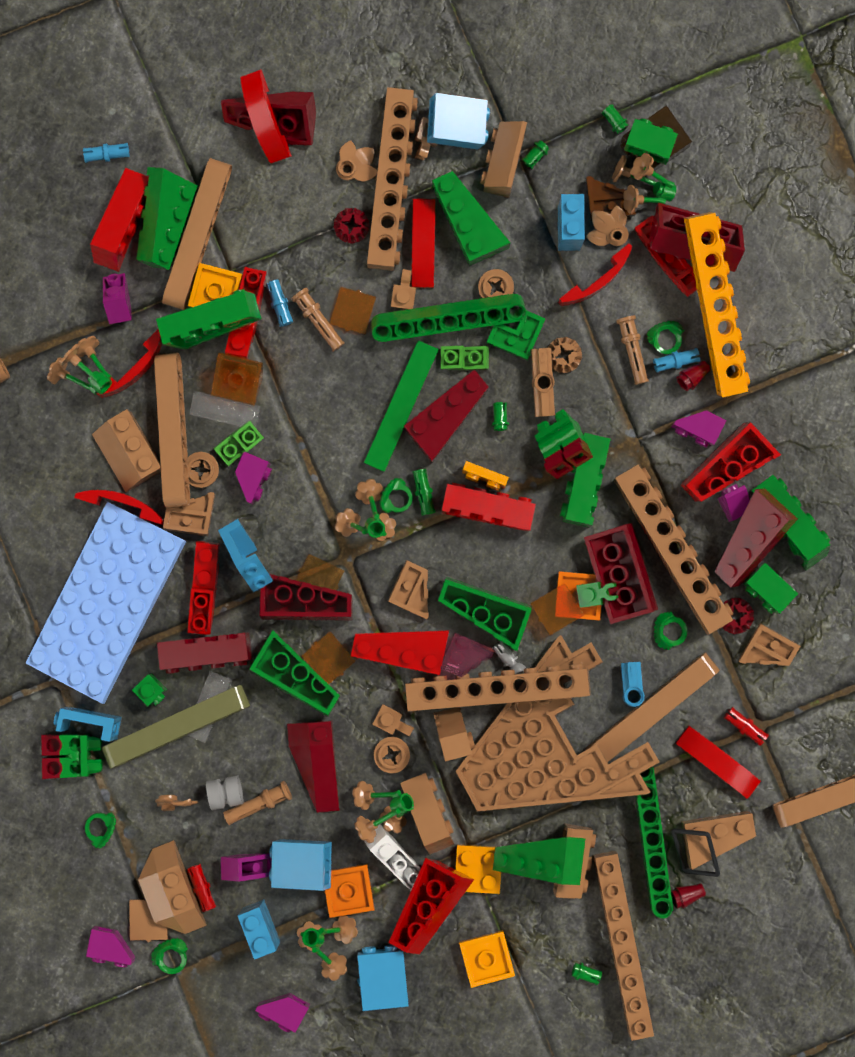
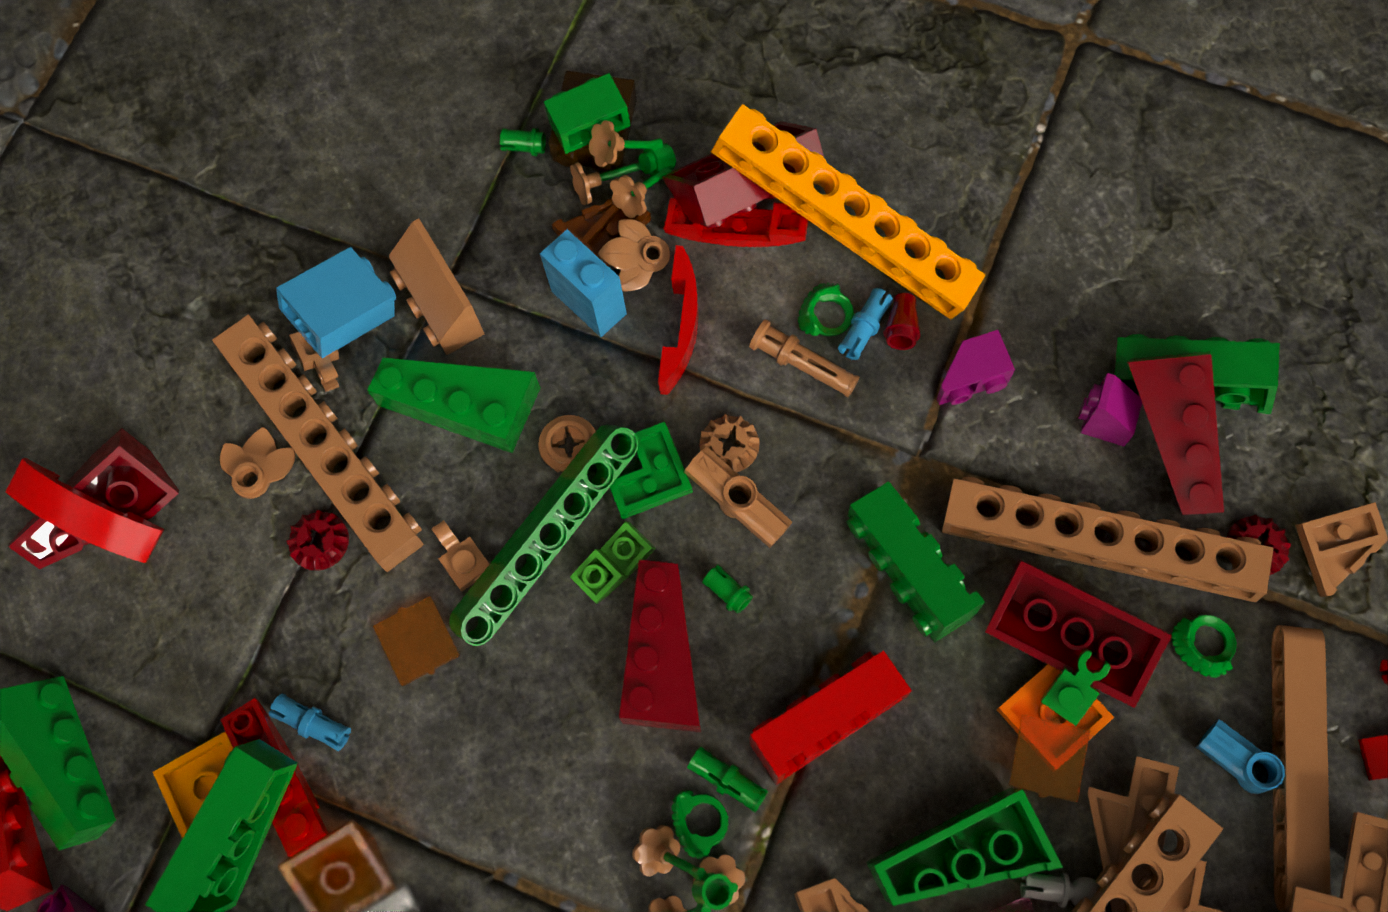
camera: 40 degrees left, 15 degrees down
(197, 233) = (118, 739): medium nougat beam -> none
(312, 311) = (362, 691): medium nougat pin -> none
(401, 406) = (592, 702): green tile -> none
(423, 243) = (430, 478): red slope -> none
(493, 479) = (798, 672): light orange plate -> none
(535, 154) = (468, 257): green pin -> none
(561, 444) = (825, 544): hips -> none
(731, 461) = (1053, 372): red wedge -> none
(770, 589) = (1265, 471): green brick -> none

